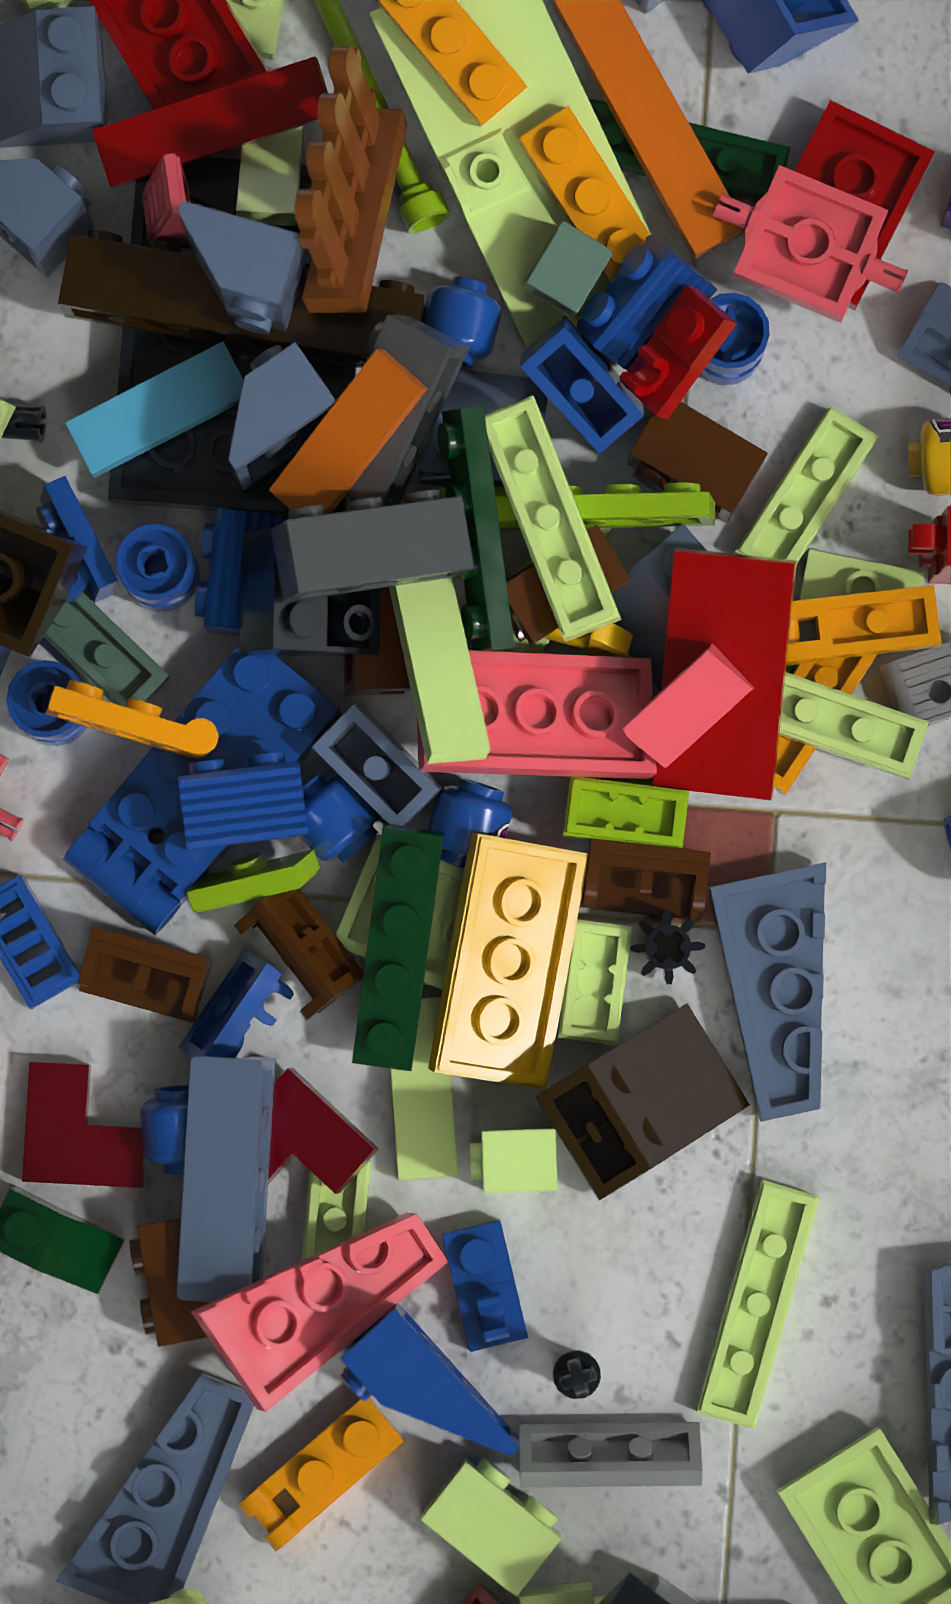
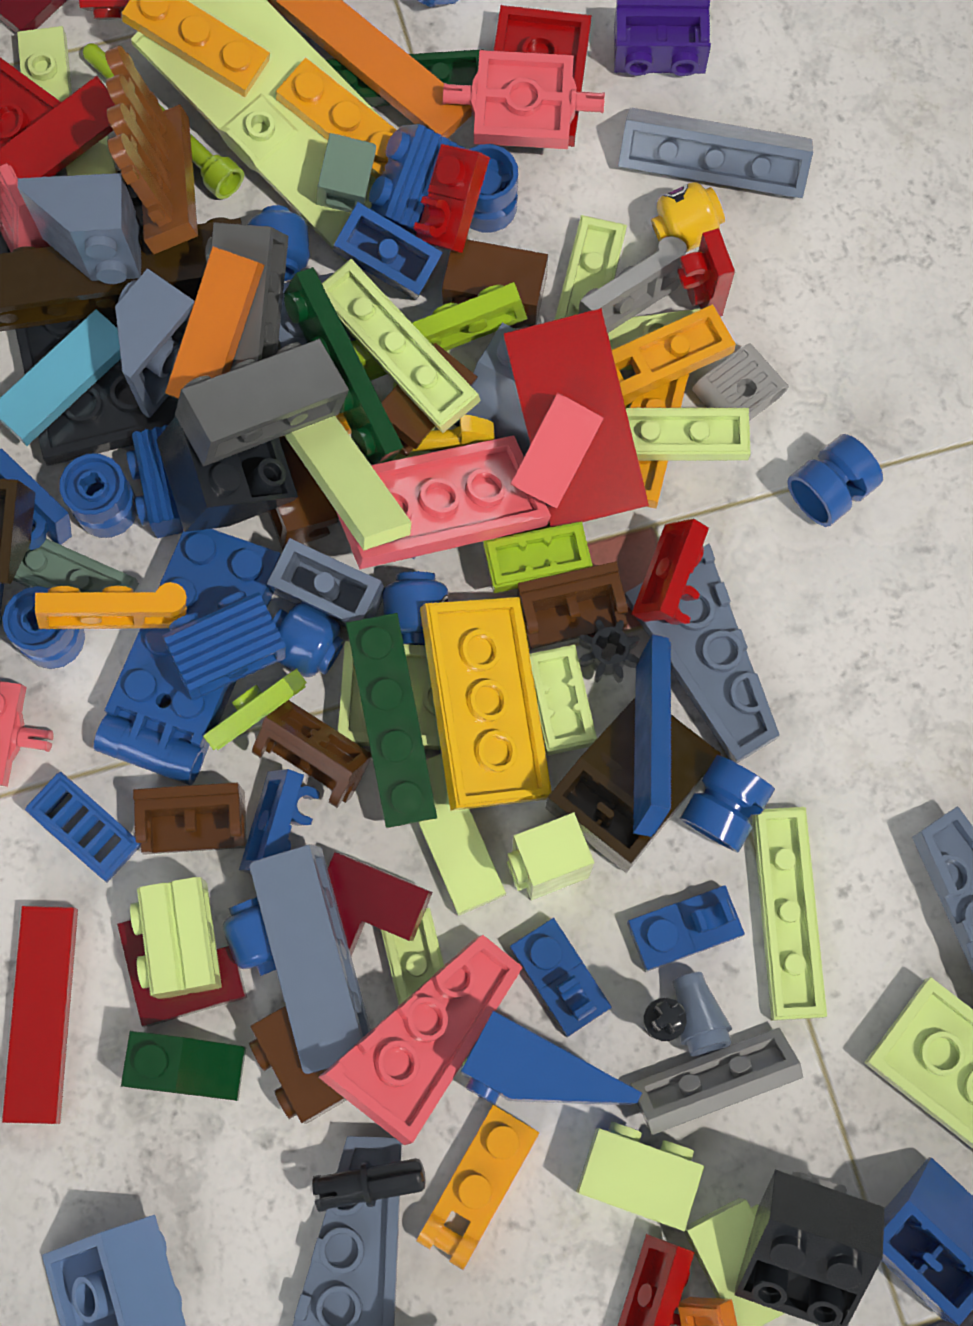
camera: 20 degrees left, 10 degrees down
(88, 1105) = (176, 938): none -> yellowish green brick
(207, 1433) = (368, 1184): none -> black axle
(621, 1382) = (706, 1023): none -> sand blue cone
(639, 1281) = (685, 928): none -> blue plate
(675, 1067) = (652, 737): none -> blue tile
(731, 1166) = (727, 803): none -> blue wheel
(765, 884) = (665, 582): none -> red plate
(853, 526) = (638, 285): none -> light grey plate

